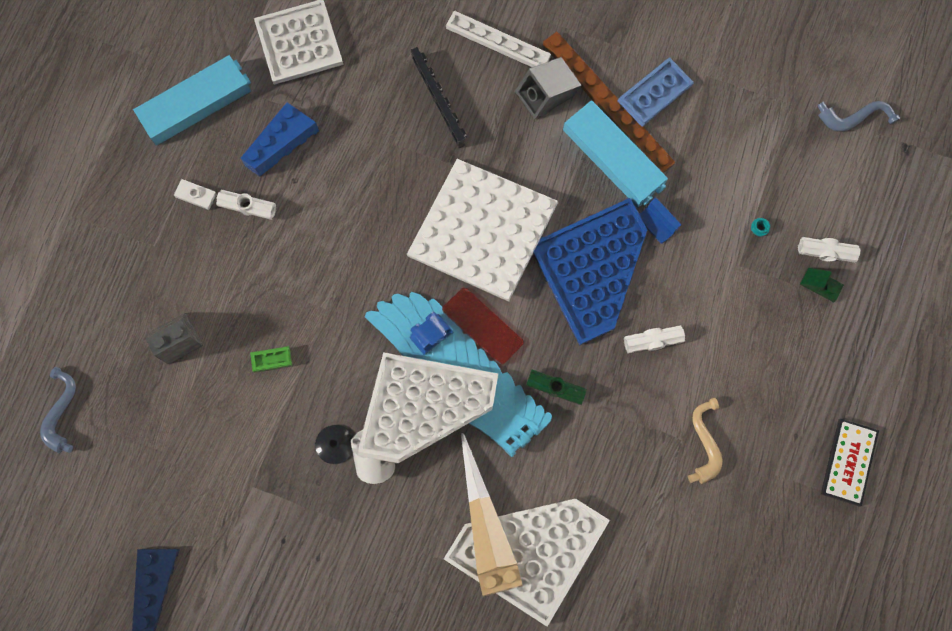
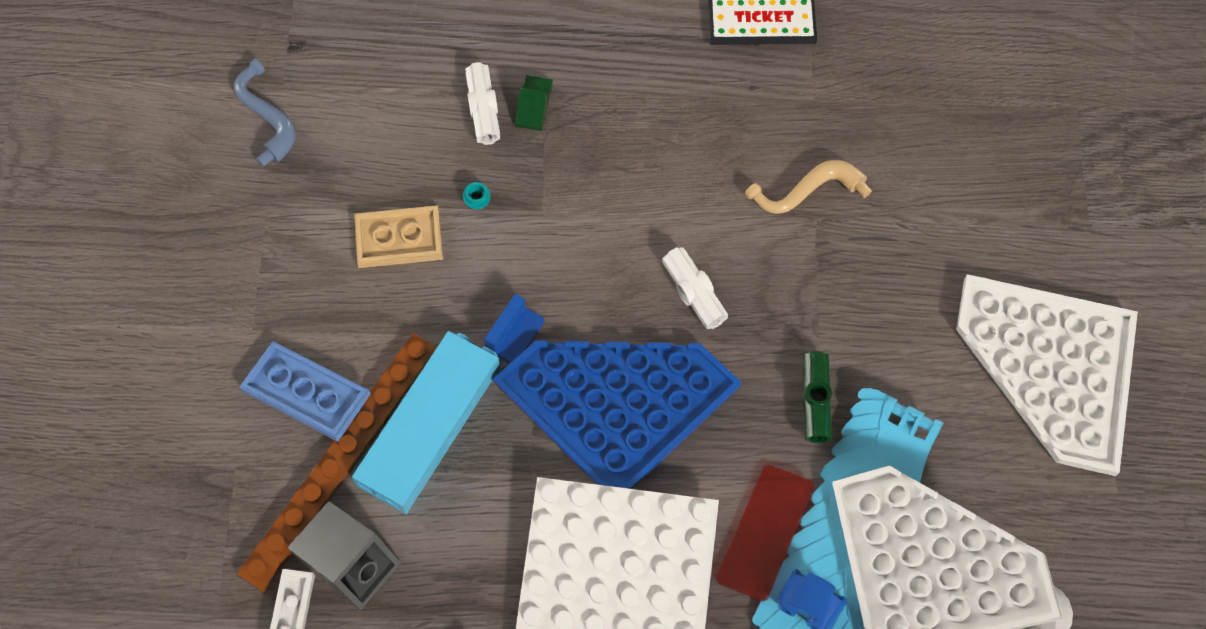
camera: 110 degrees left, 10 degrees down
(494, 558) = (1082, 406): tan plate -> none
(745, 173) = (398, 236): none -> tan tile

